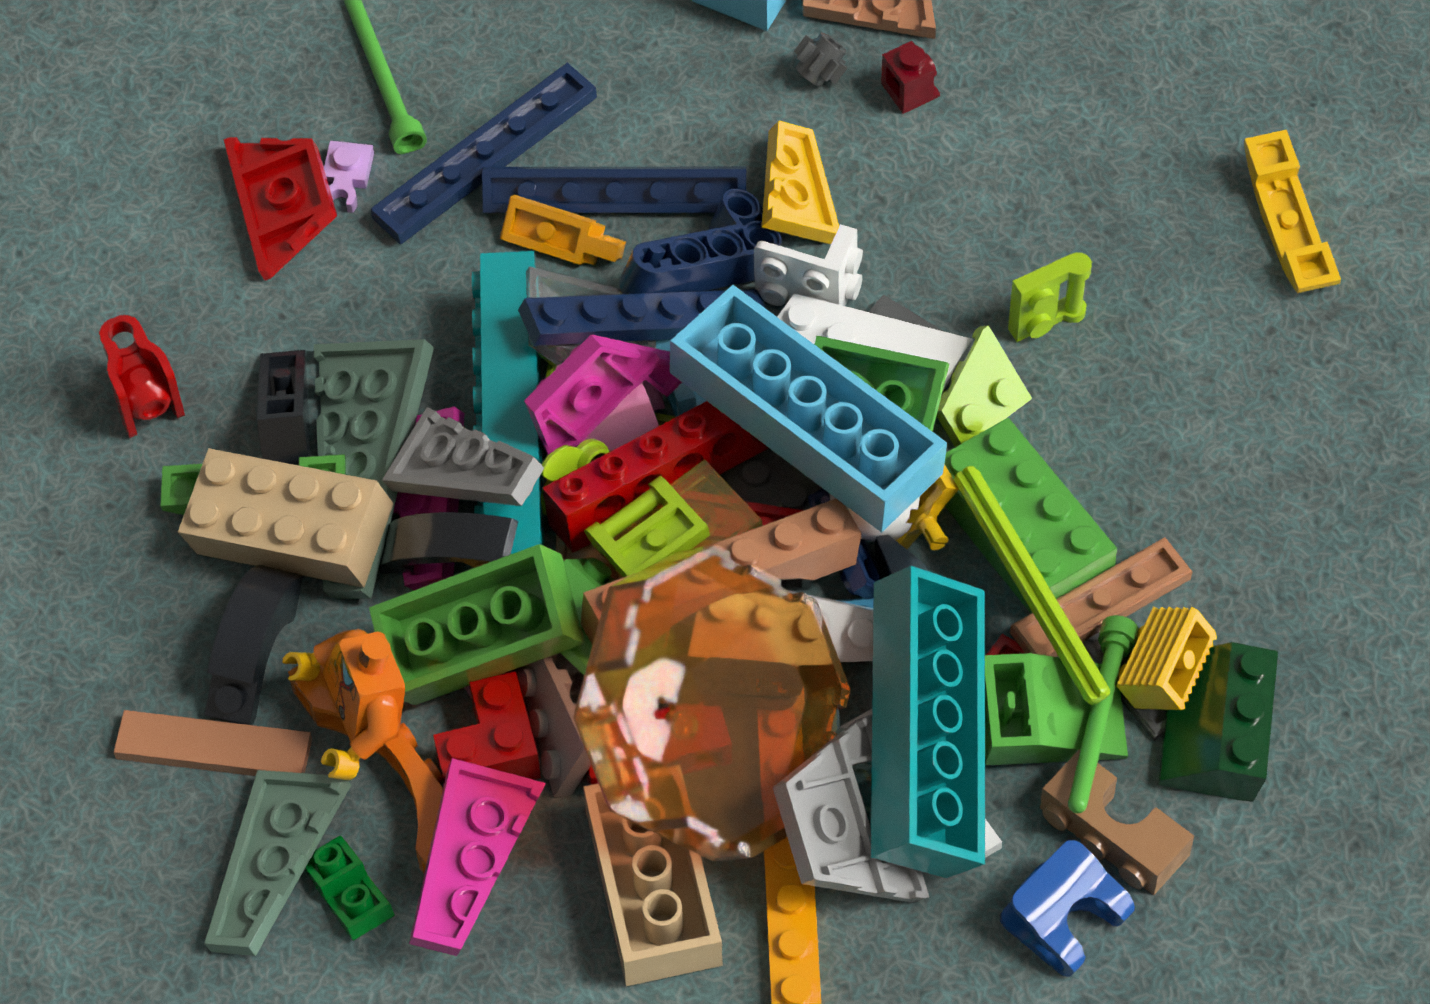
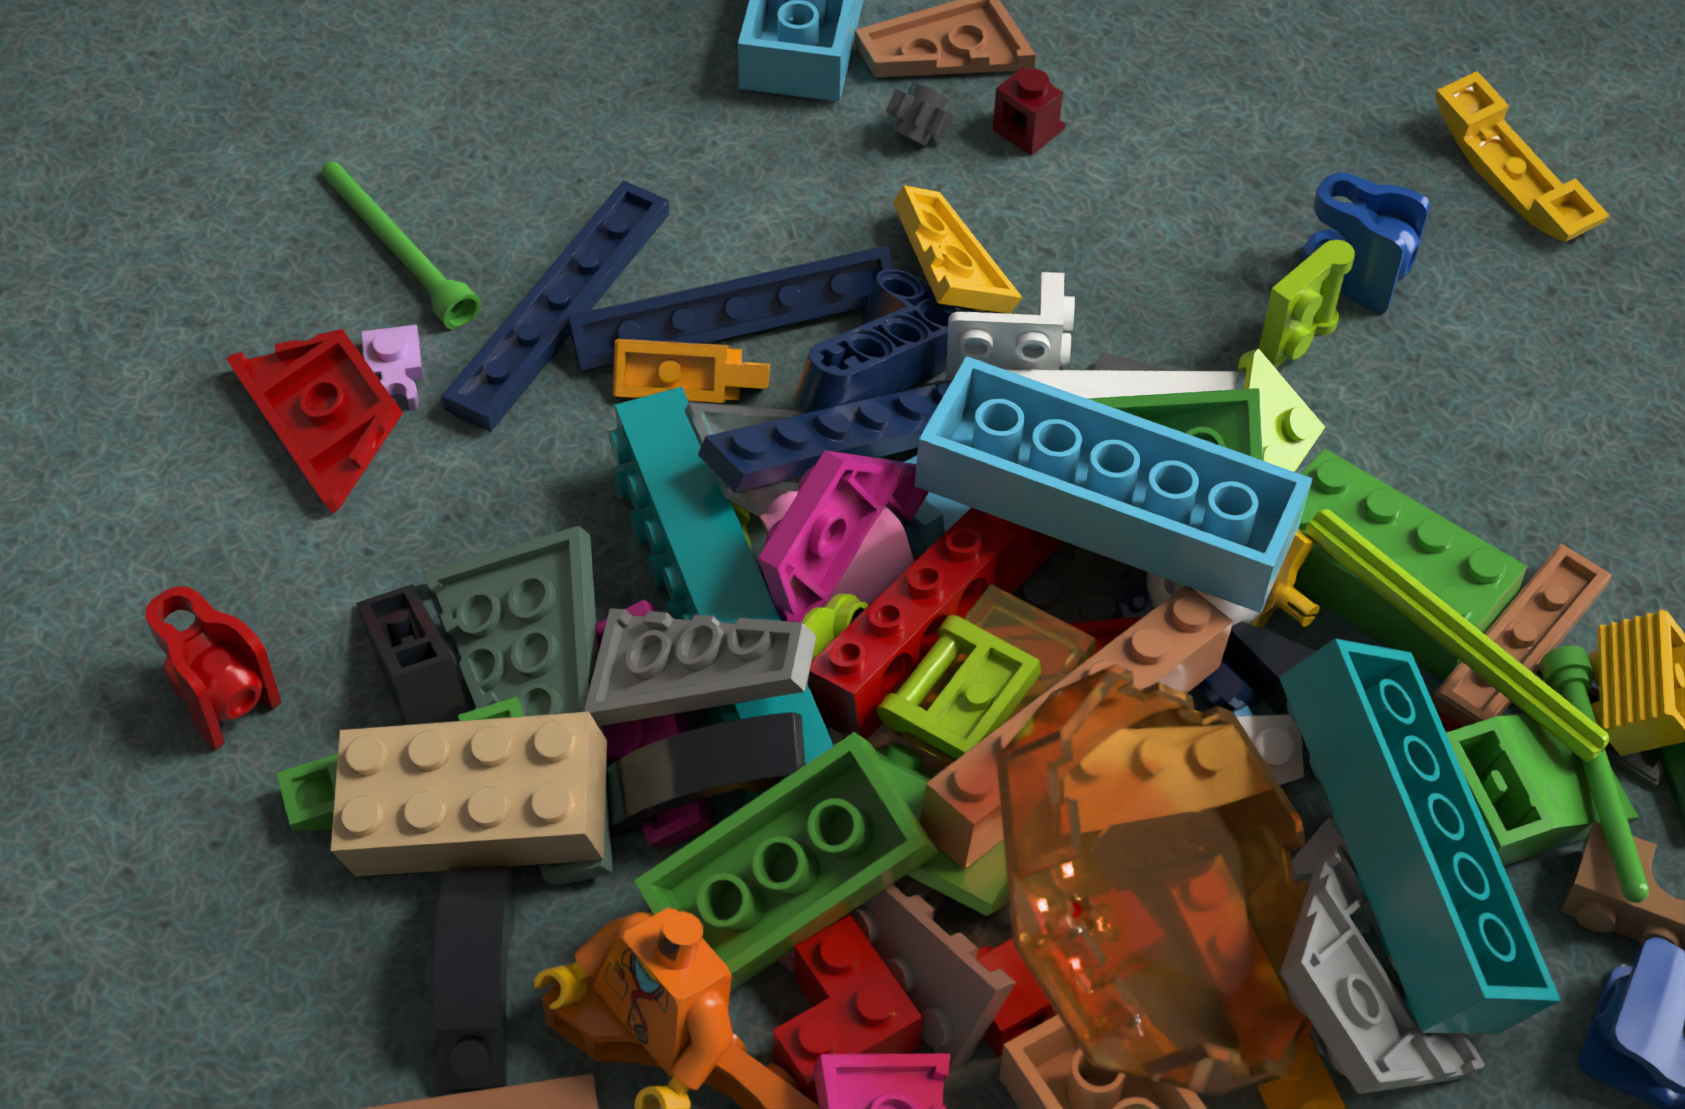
camera: 20 degrees left, 5 degrees down
(1134, 253) = (1381, 227): none -> blue piece

